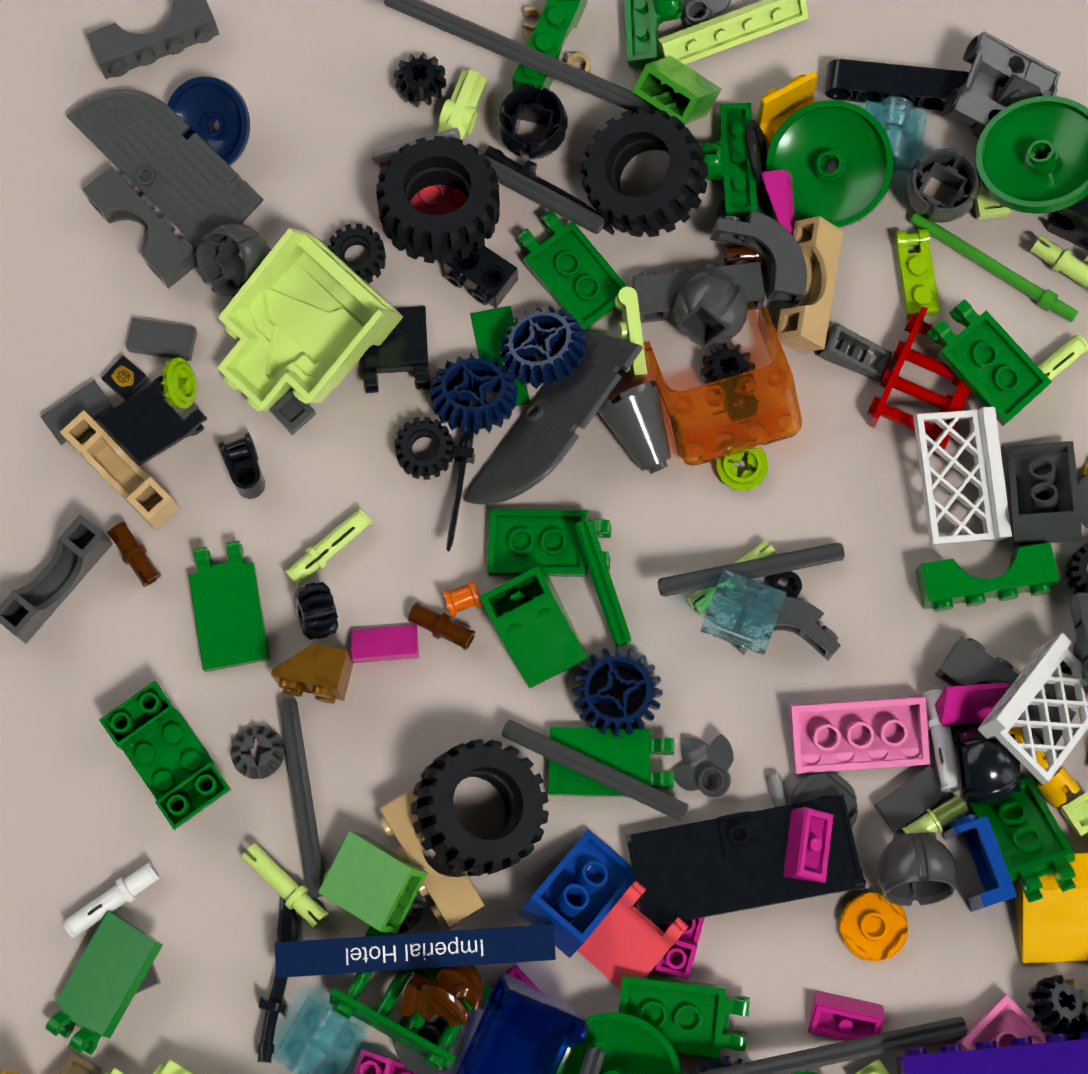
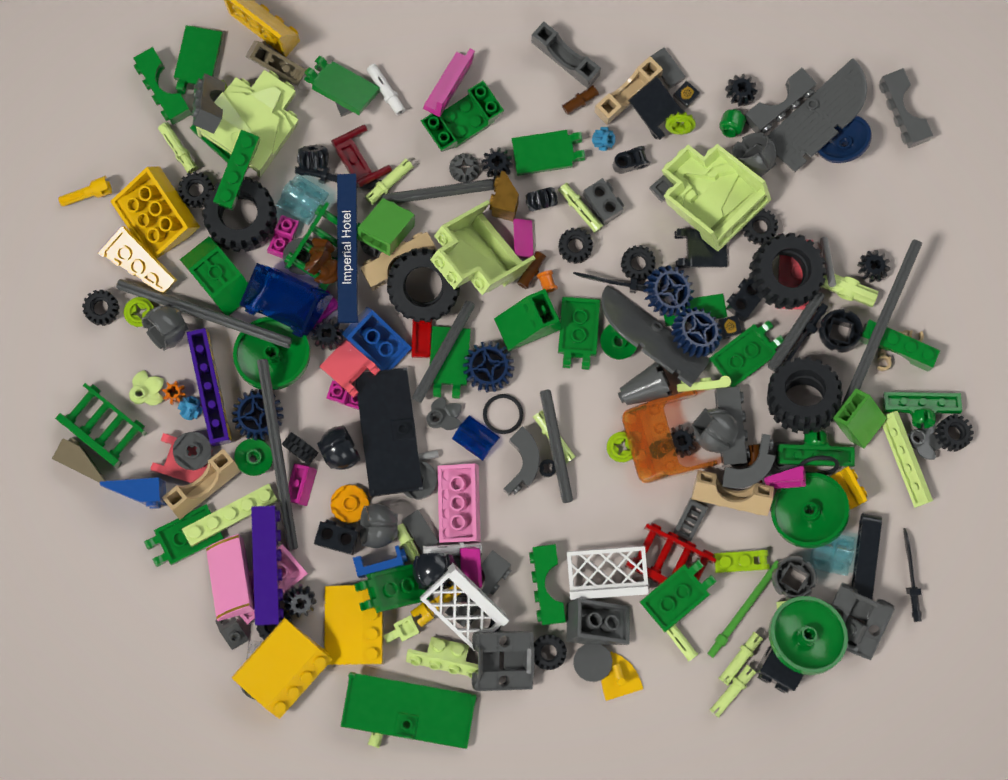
camera: 90 degrees right, 5 degrees up
(102, 782) = (449, 83): none -> dark pink fence
(117, 299) = (746, 95): none -> black gear
(161, 339) = (710, 115): dark grey tile -> none
(177, 301) = (732, 123): none -> green head
(205, 510) = (603, 138): none -> dark azure gear
(240, 684) = (490, 160): none -> black gear
(242, 953) = (354, 160): none -> dark red plate
(242, 1027) = (313, 157): none -> black gear
(322, 515) = (599, 203): none -> dark grey brick
(382, 539) = (575, 256): none -> black tyre
(426, 711) = (476, 253): none -> yellowish green panel
(527, 298) = (730, 327): none -> black tile
(574, 813) = (421, 339): none -> red tile
(579, 481) = (613, 350): none -> green dish
(583, 982) = (327, 327): none -> black gear
(603, 582) = (551, 360): green axle -> none
(687, 1012) = (306, 396): green tile -> none
(696, 697) = (503, 431): none -> black tyre
(742, 709) = (475, 437): none -> clear blue panel
(743, 612) = (527, 435): clear light blue plate -> none
(783, 950) = (338, 449): none -> black piece
(786, 1020) = (300, 448): none -> black tyre
(808, 845) = (394, 466): dark pink slope -> none
(939, 18) = (913, 590): none -> black sword
(948, 948) = (334, 542): none -> black brick

